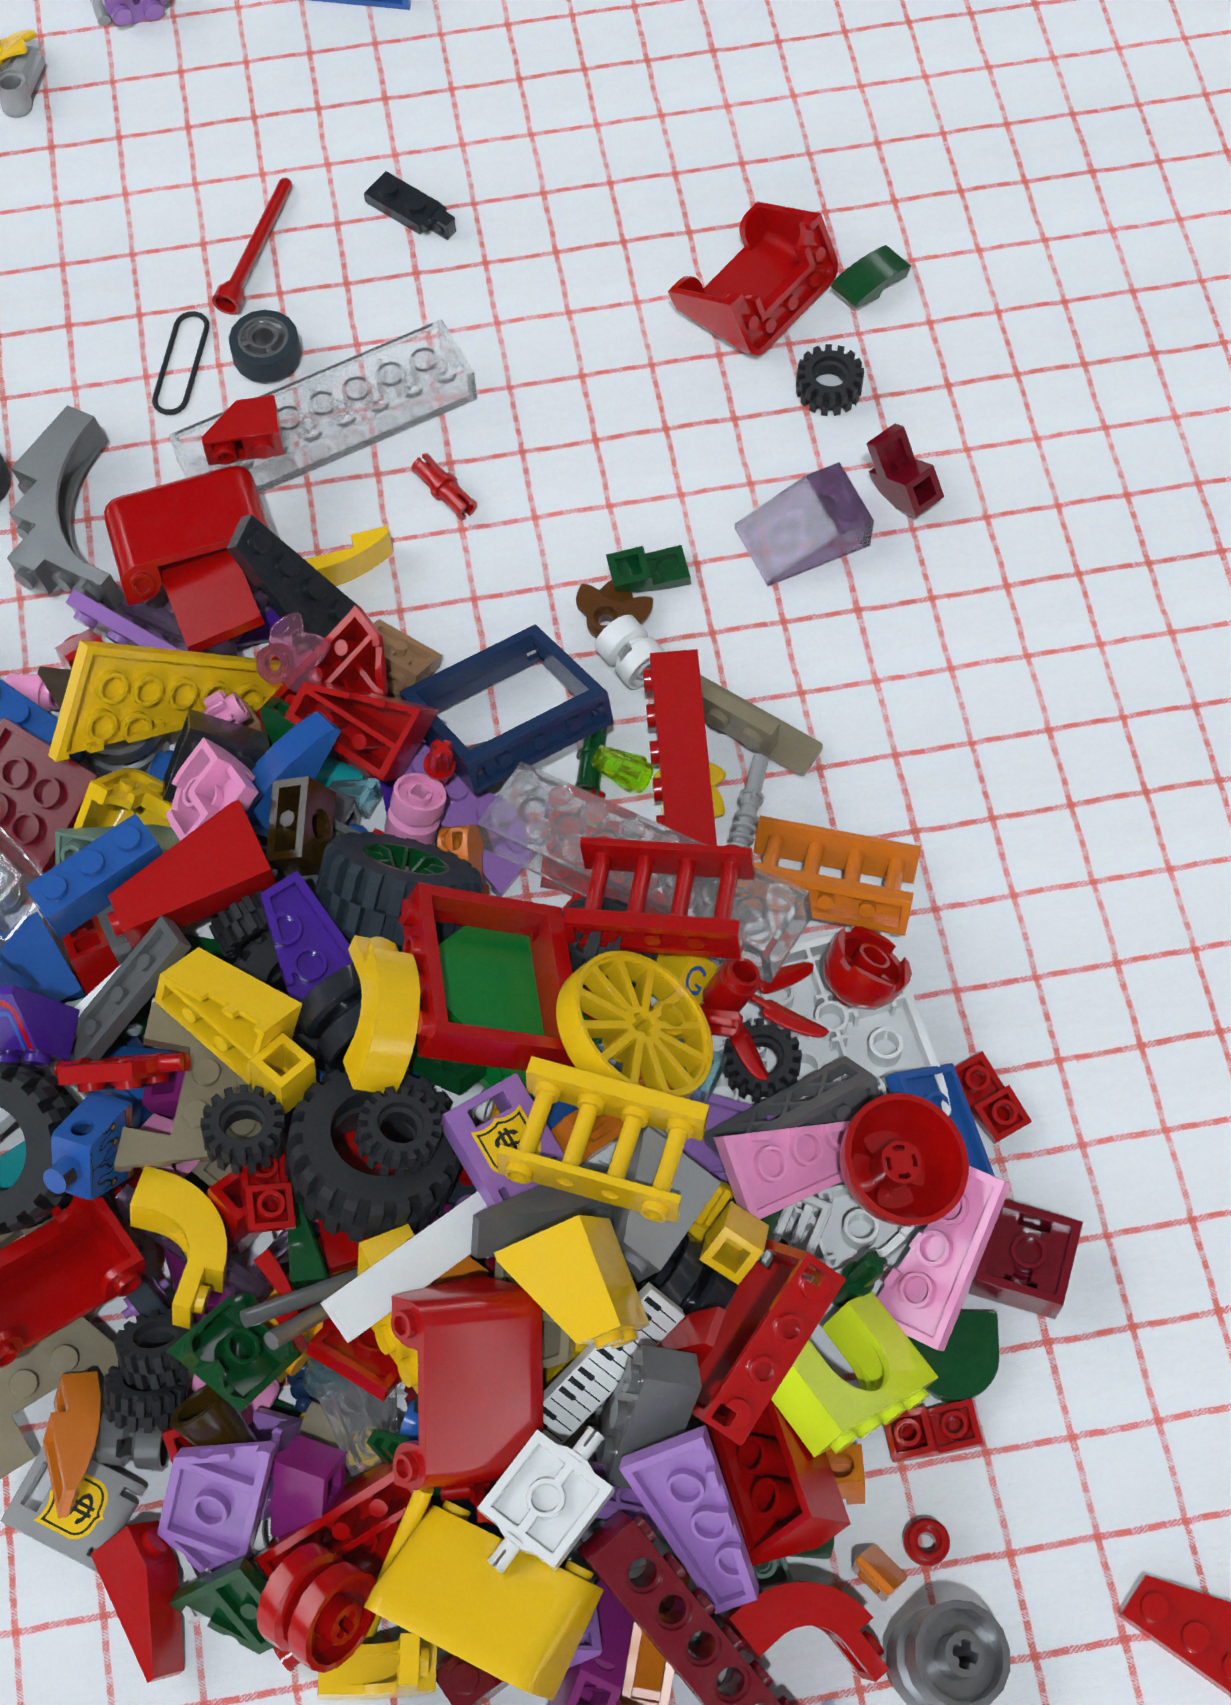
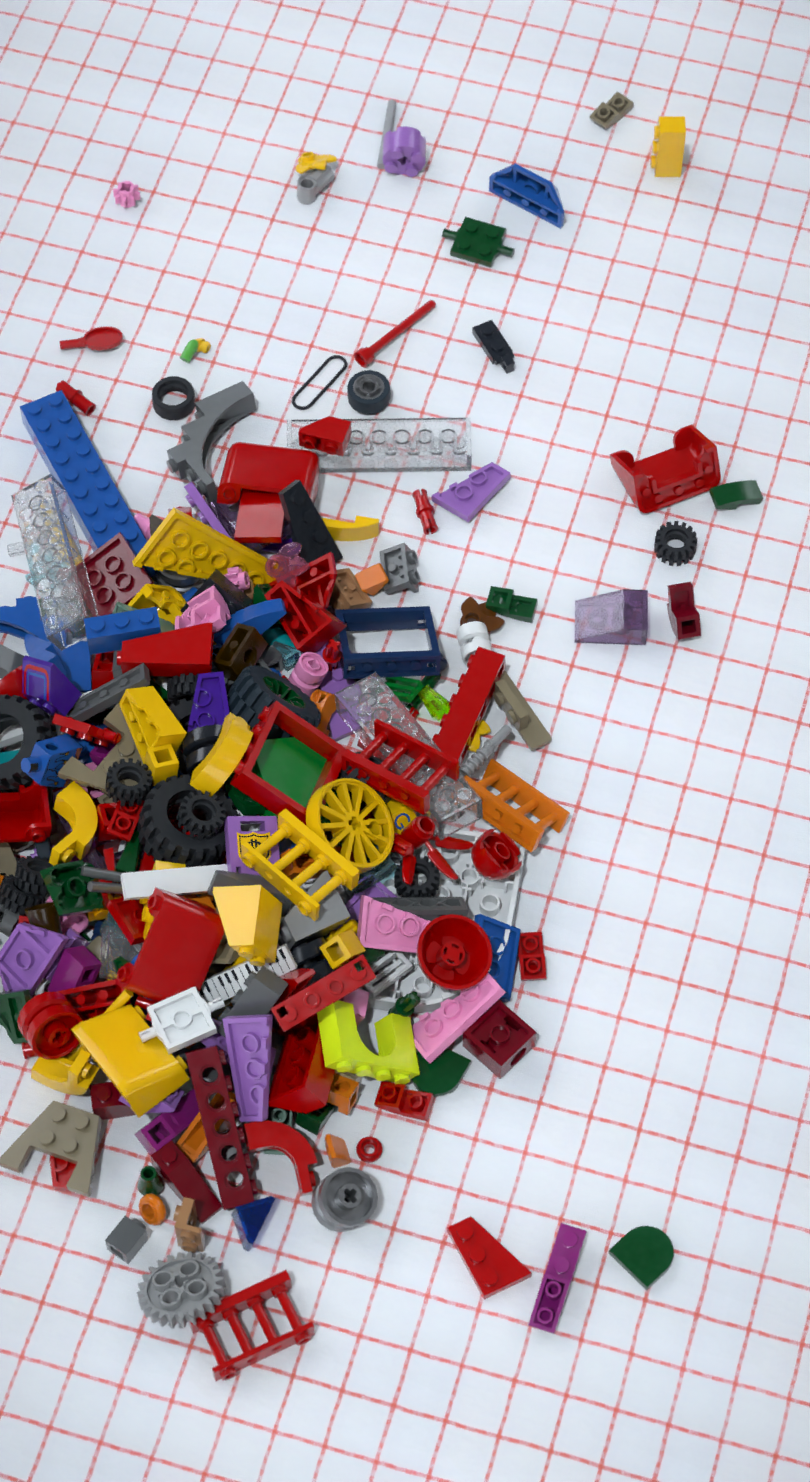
camera: 25 degrees right, 5 degrees down
(304, 71) = (478, 242): none -> dark green plate
(424, 620) = (372, 579): none -> orange slope
(454, 588) = (400, 567): none -> dark grey bracket
(499, 430) = (473, 493): none -> medium lavender wing
(571, 760) = (404, 685): none -> green tile

